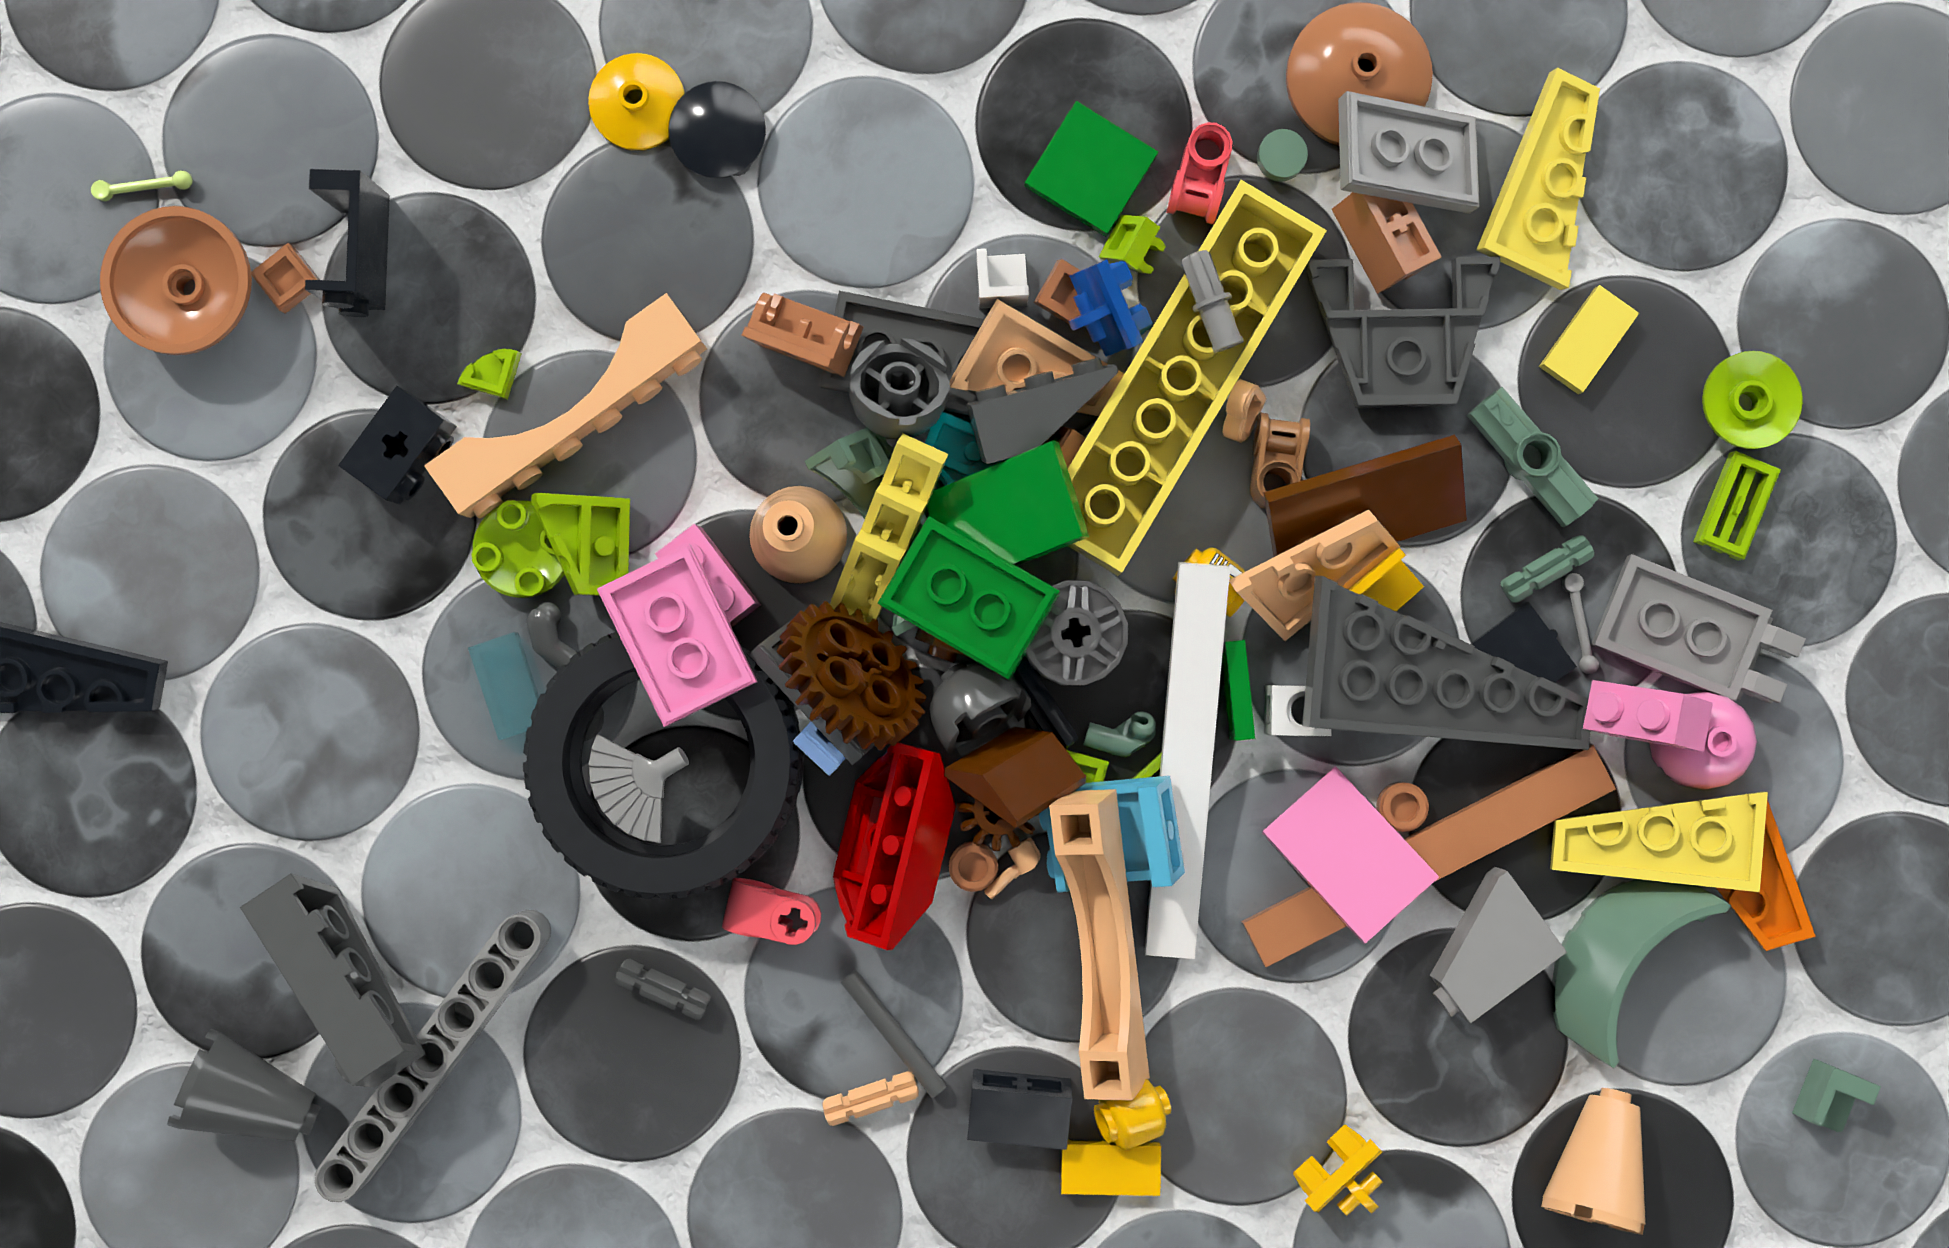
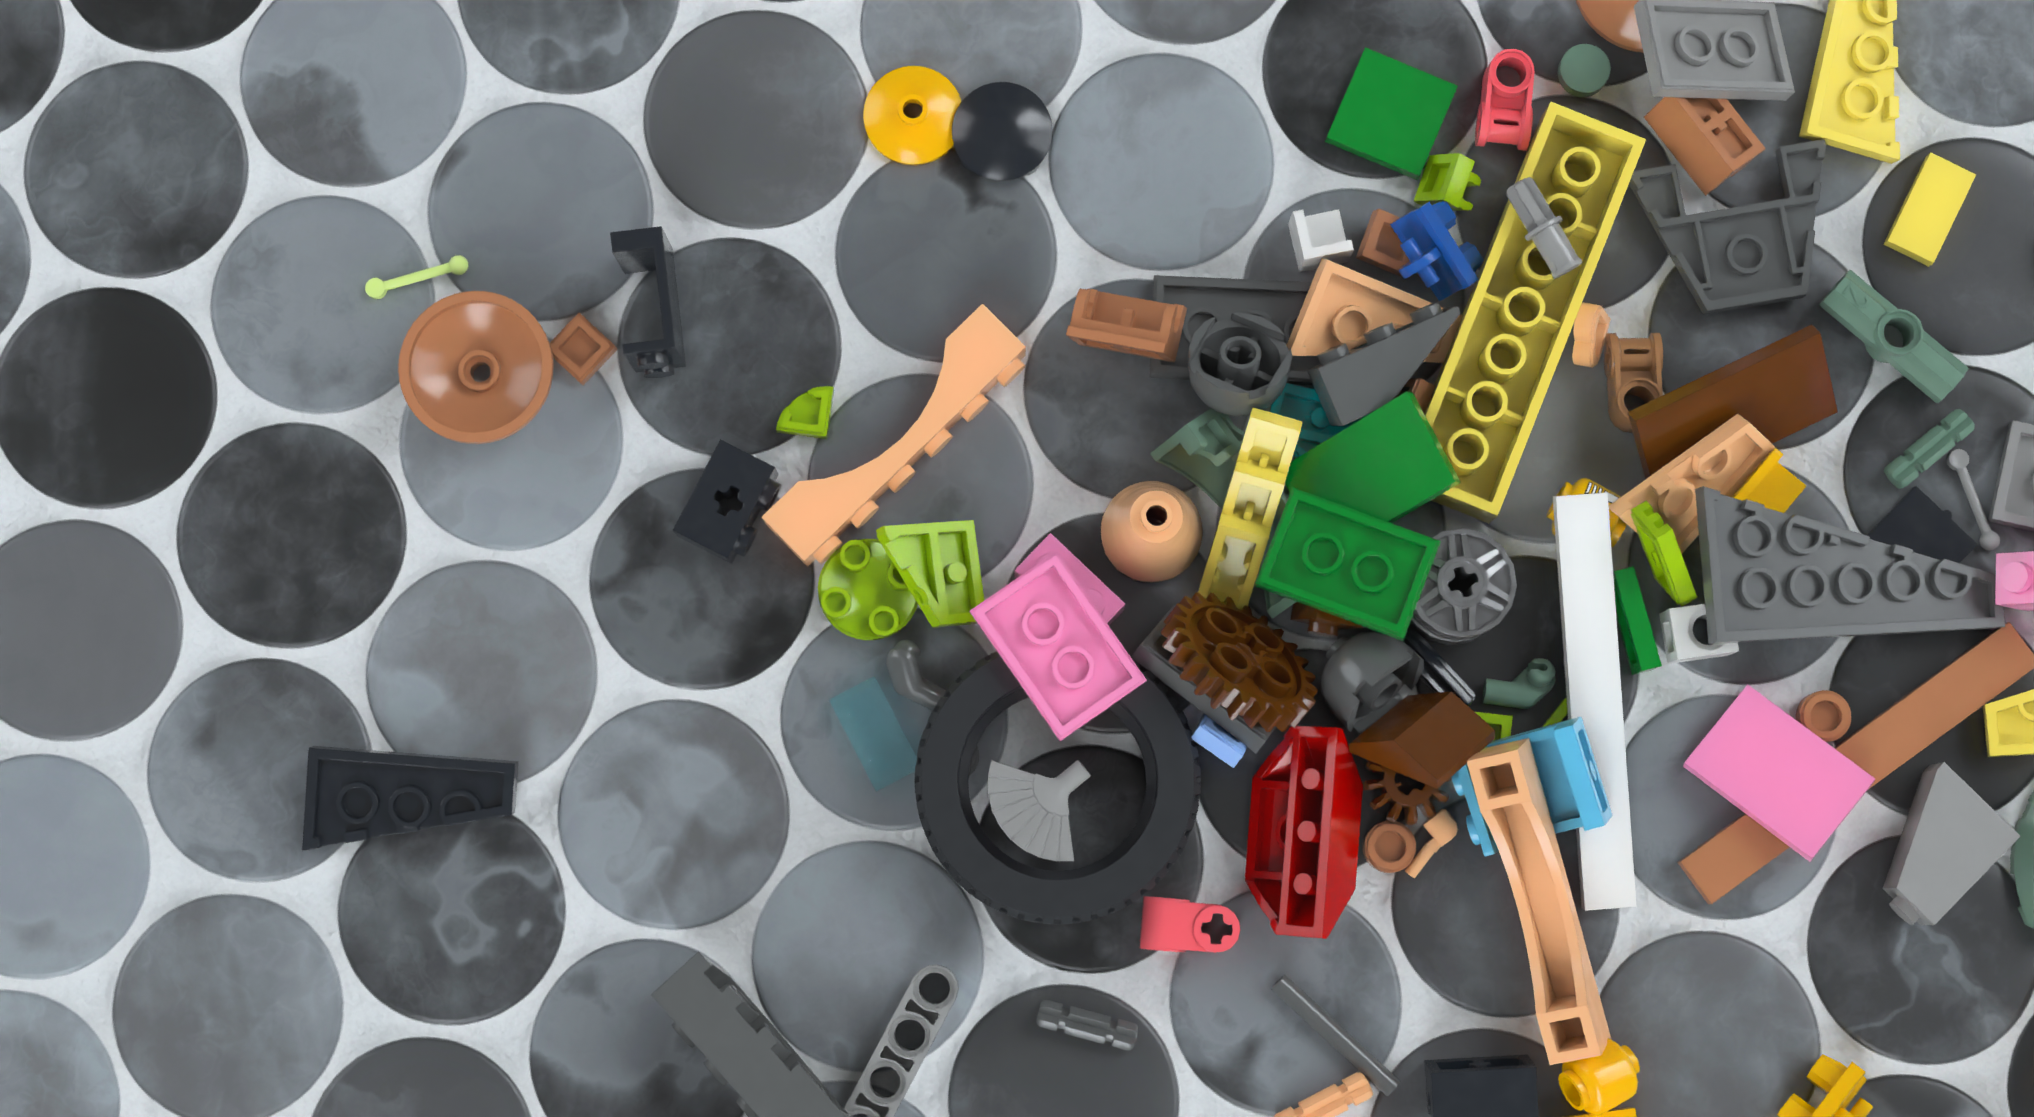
camera: 10 degrees left, 5 degrees down
(1274, 633) = (1663, 554): none -> lime tile

